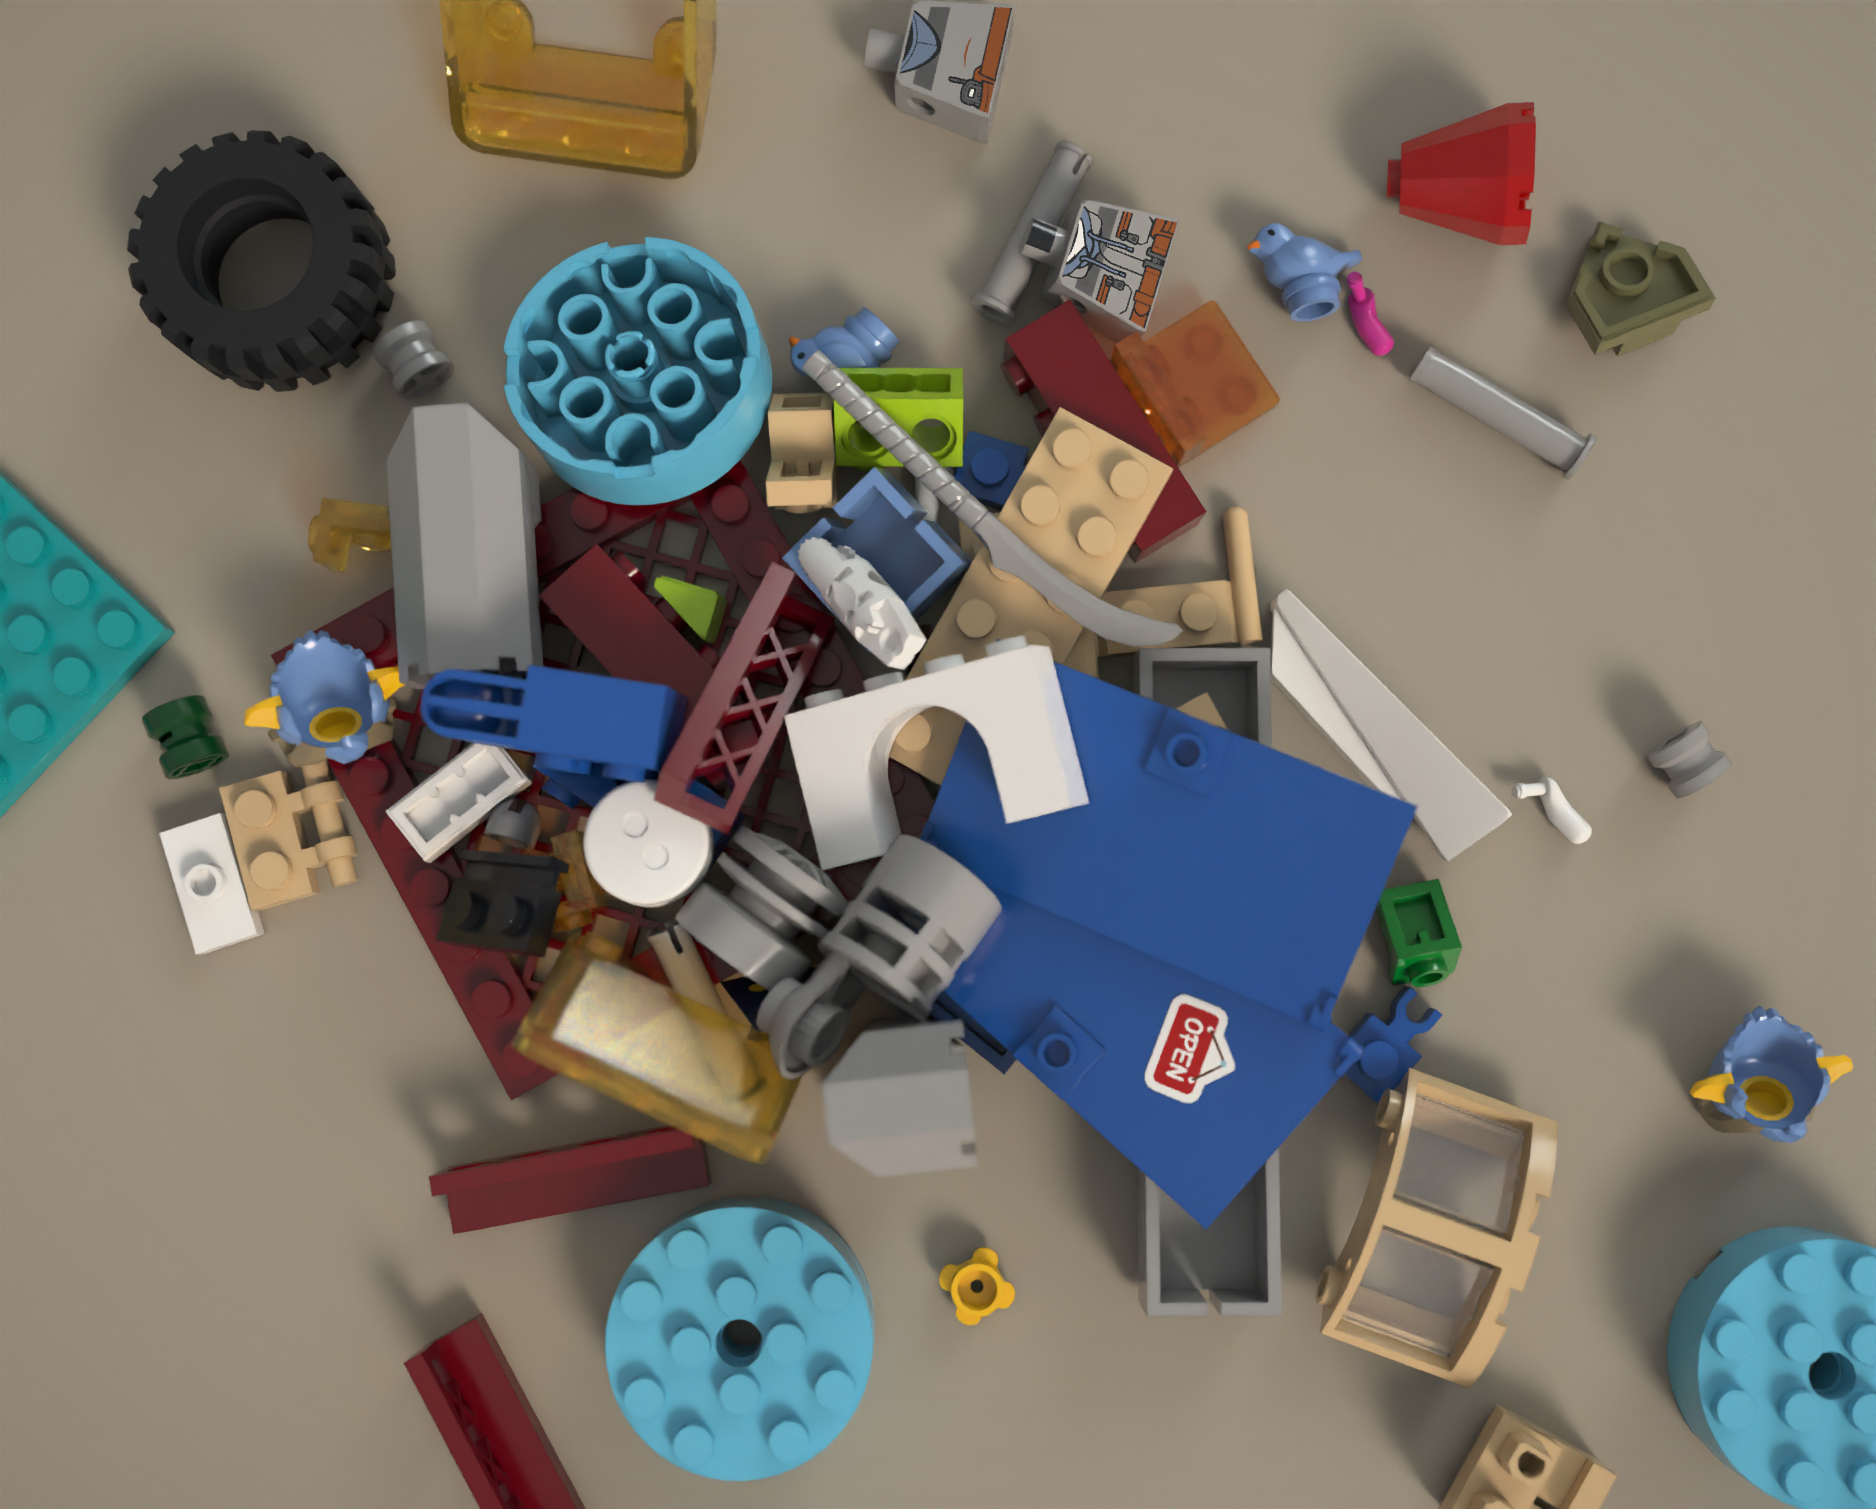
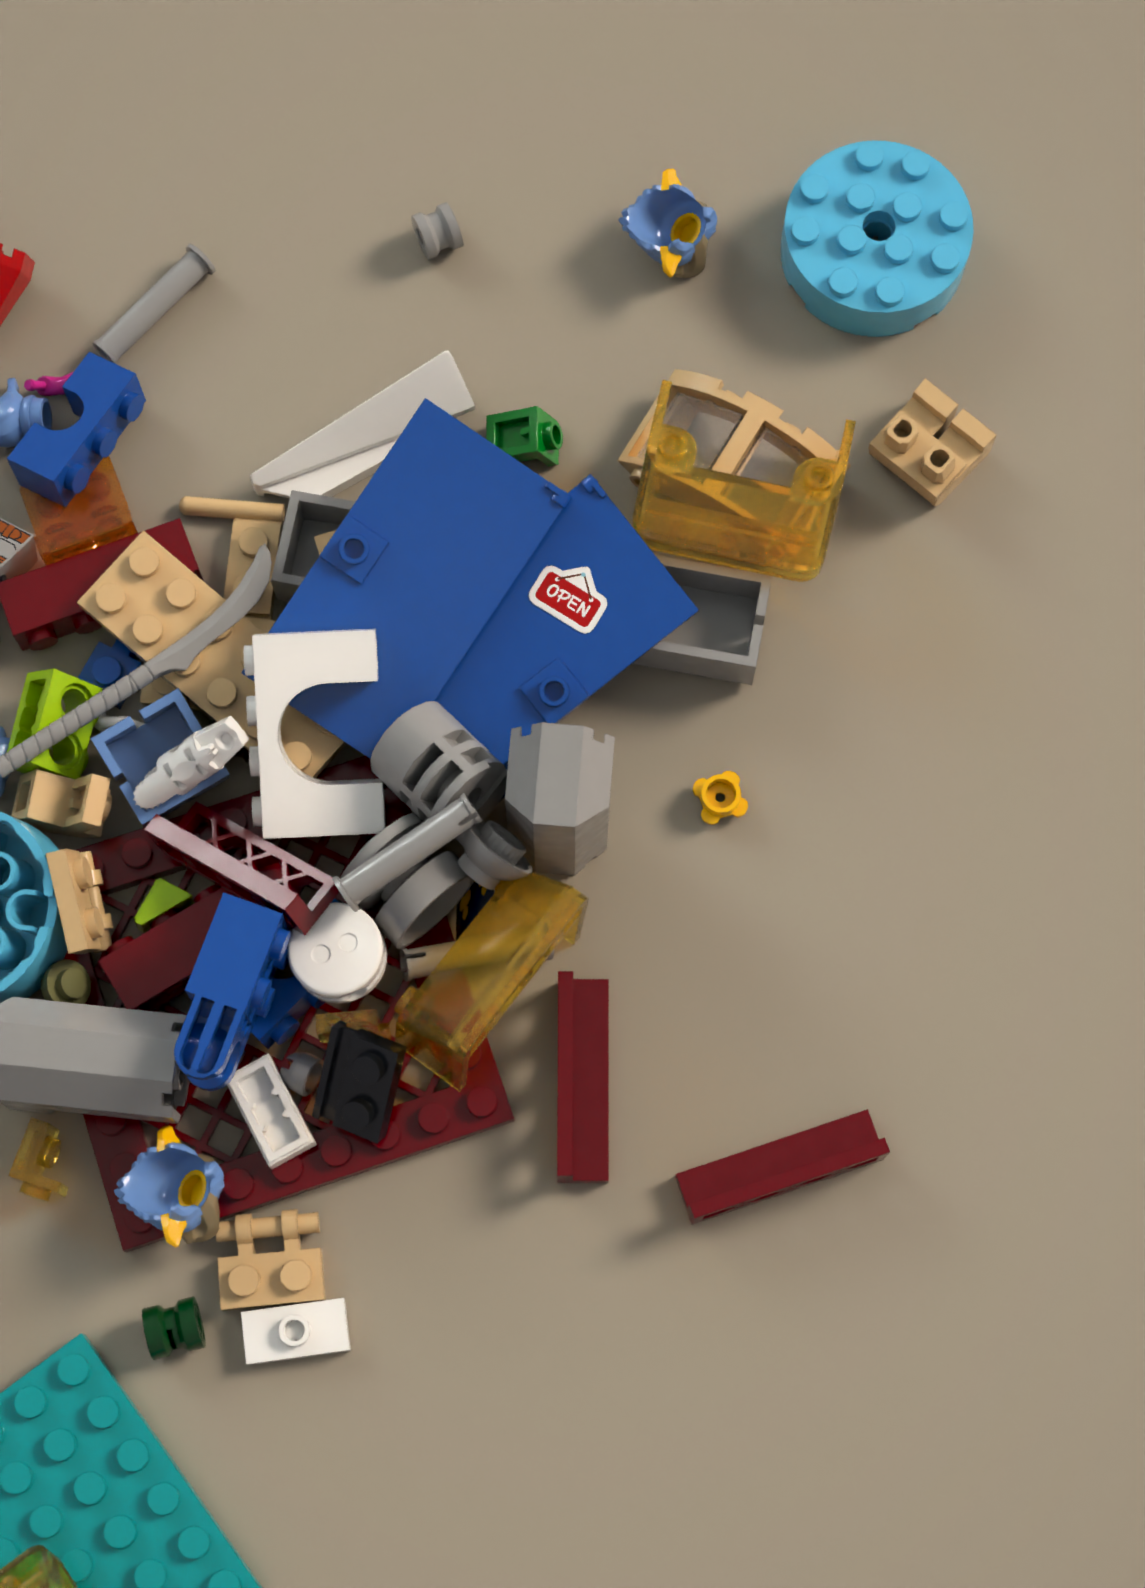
camera: 80 degrees left, 10 degrees down
(566, 512) = (66, 982): none -> olive plate
(666, 503) = (80, 901): none -> tan plate
(727, 1404) = (734, 919): medium azure brick -> none
(774, 913) = (407, 851): none -> light grey pin
(1254, 345) = (61, 461): none -> blue arch
(1344, 1257) = (732, 516): none -> clear yellow windscreen
(1386, 1046) = (608, 472): blue plate -> none
(1557, 808) = (453, 327): white piece -> none
(1634, 291) = (87, 197): olive plate -> none

